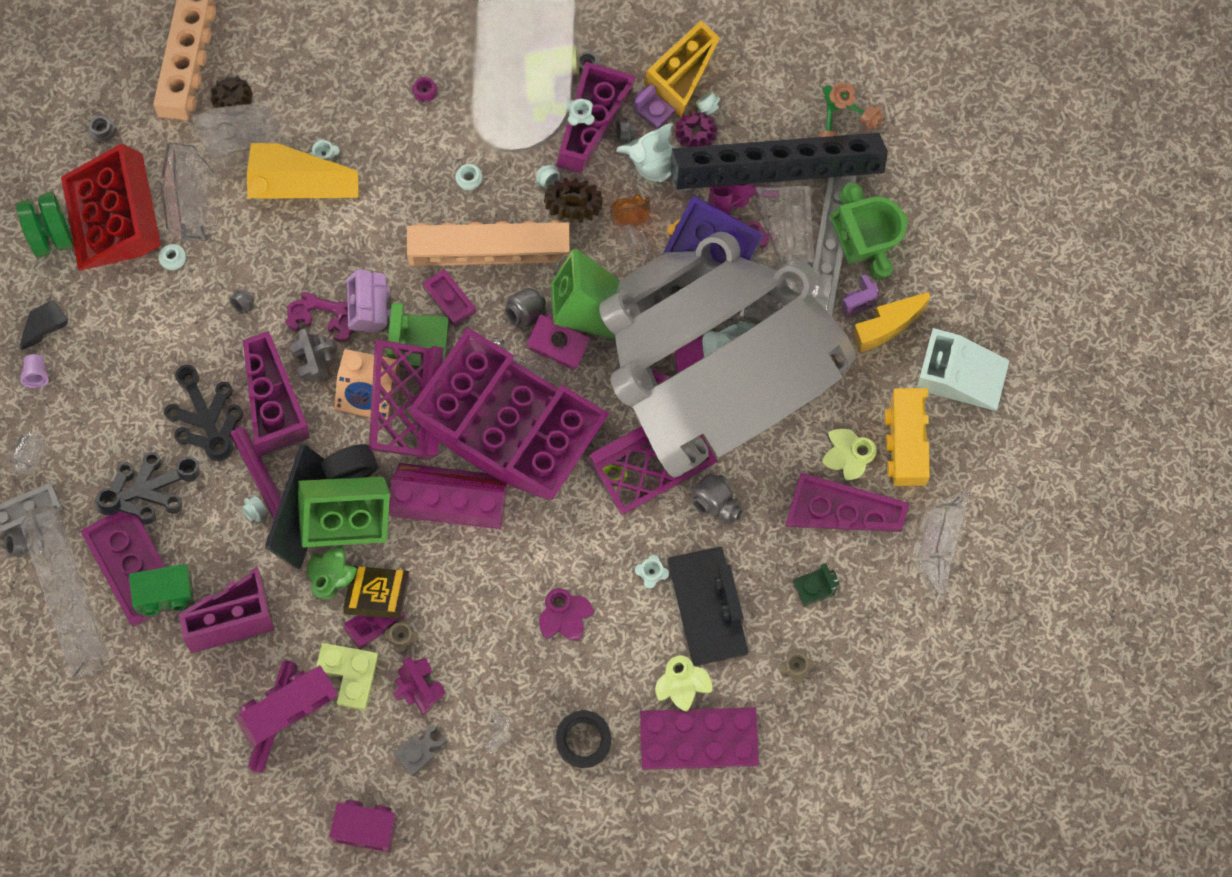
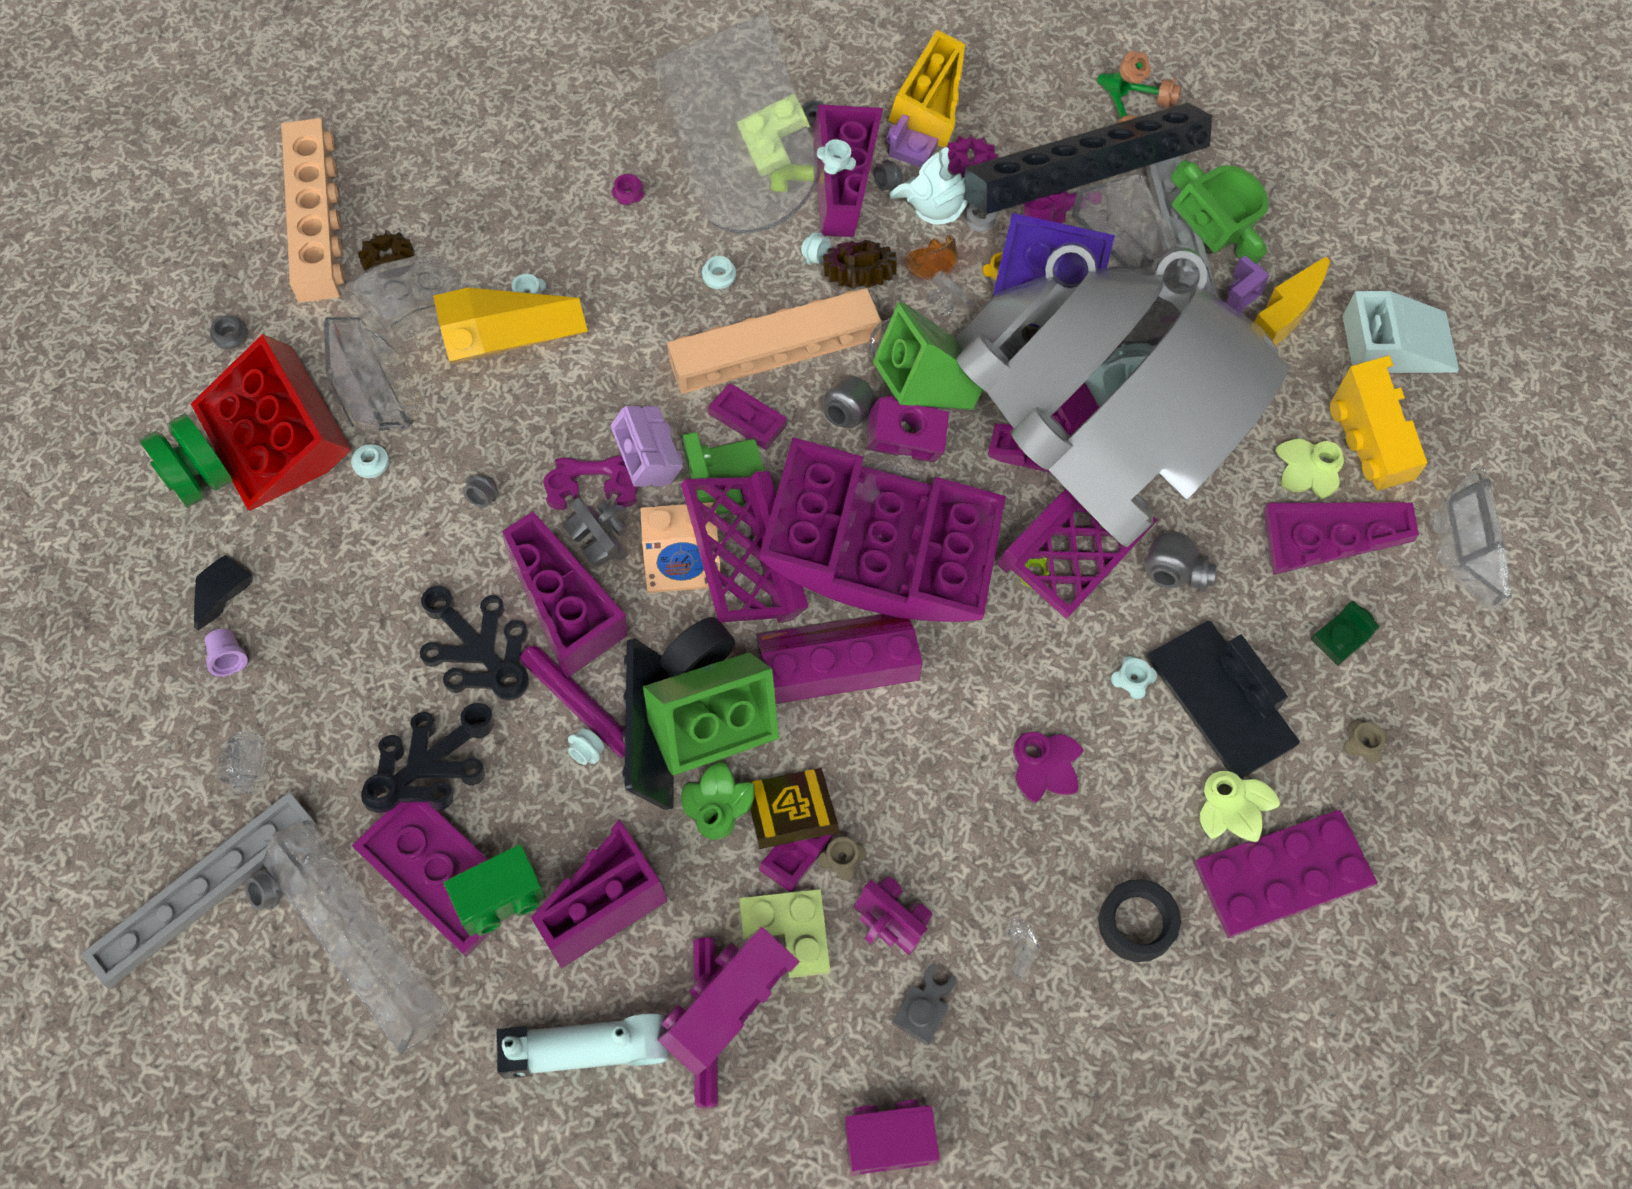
camera: 20 degrees left, 5 degrees down
(153, 700) = (580, 1046): none -> light aqua piece
(707, 103) = (973, 123): light aqua plate -> none

